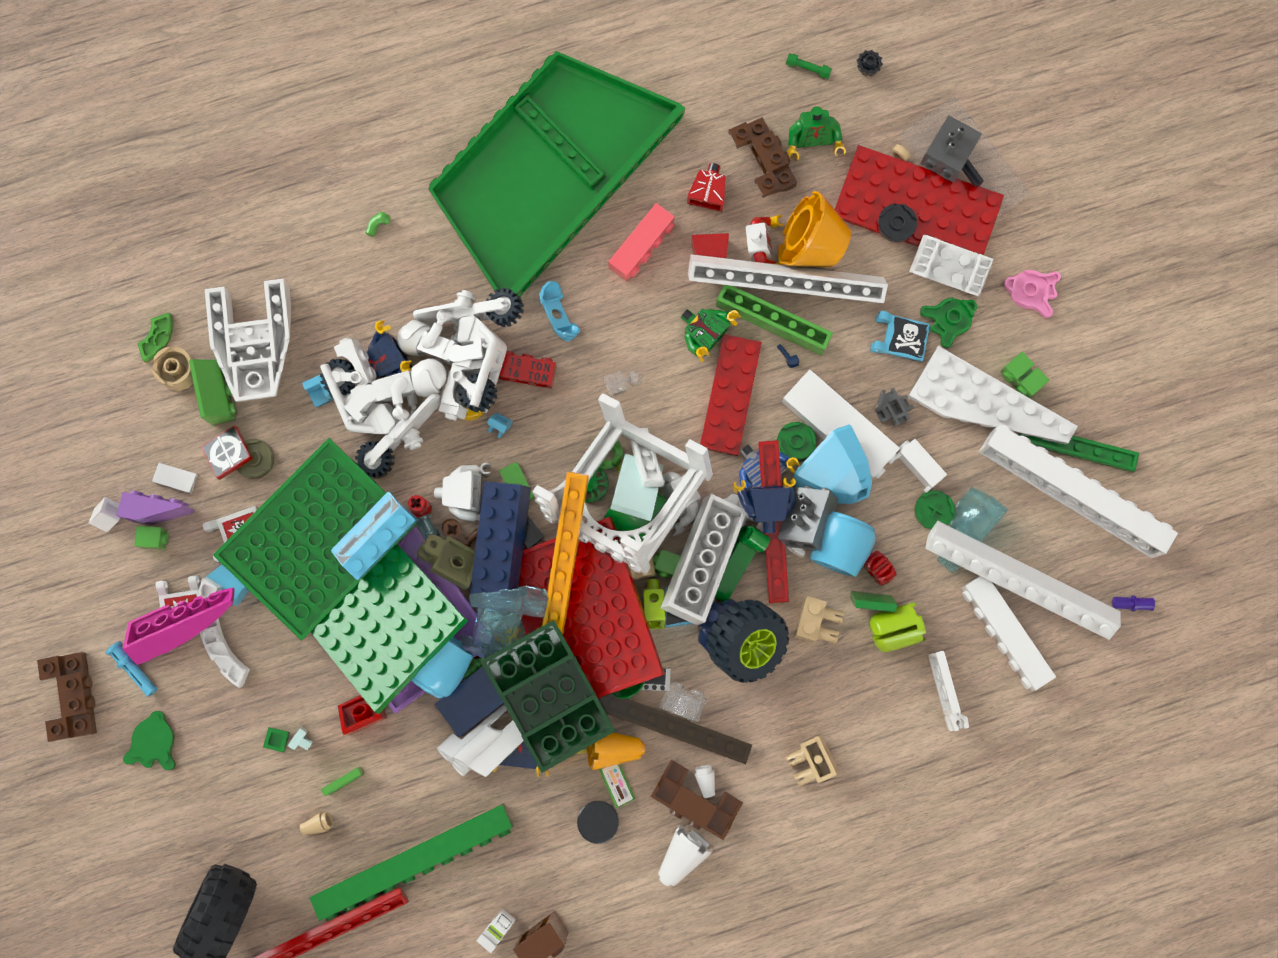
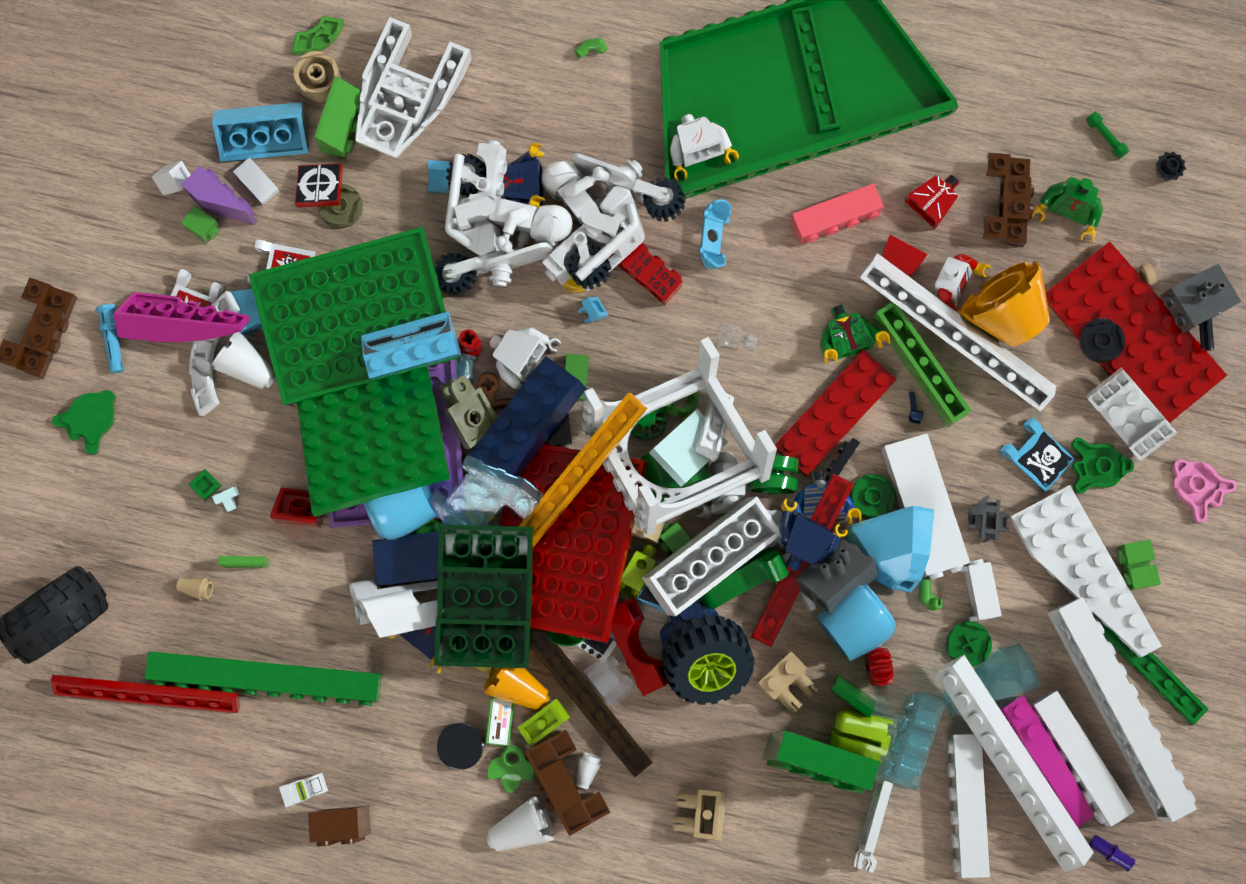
camera: 25 degrees right, 0 degrees up
(155, 437) = (260, 131): none -> medium azure slope
(250, 626) = (244, 363): none -> white cone
(503, 248) = (697, 142): none -> white torso
(647, 818) = (511, 772): none -> bright green plate
(651, 764) = (543, 722): none -> lime plate
(704, 676) = (625, 627): none -> red arch
(721, 471) = (780, 479): none -> green wheel
(757, 418) = (846, 452): none -> black plate
(882, 493) = (927, 598): none -> bright green arm
(882, 668) = (820, 762): none -> green brick
(938, 608) = (913, 740): none -> clear light blue brick
(1043, 561) = (1047, 758): none -> dark pink wedge
(1068, 546) = (1082, 760): none -> white brick

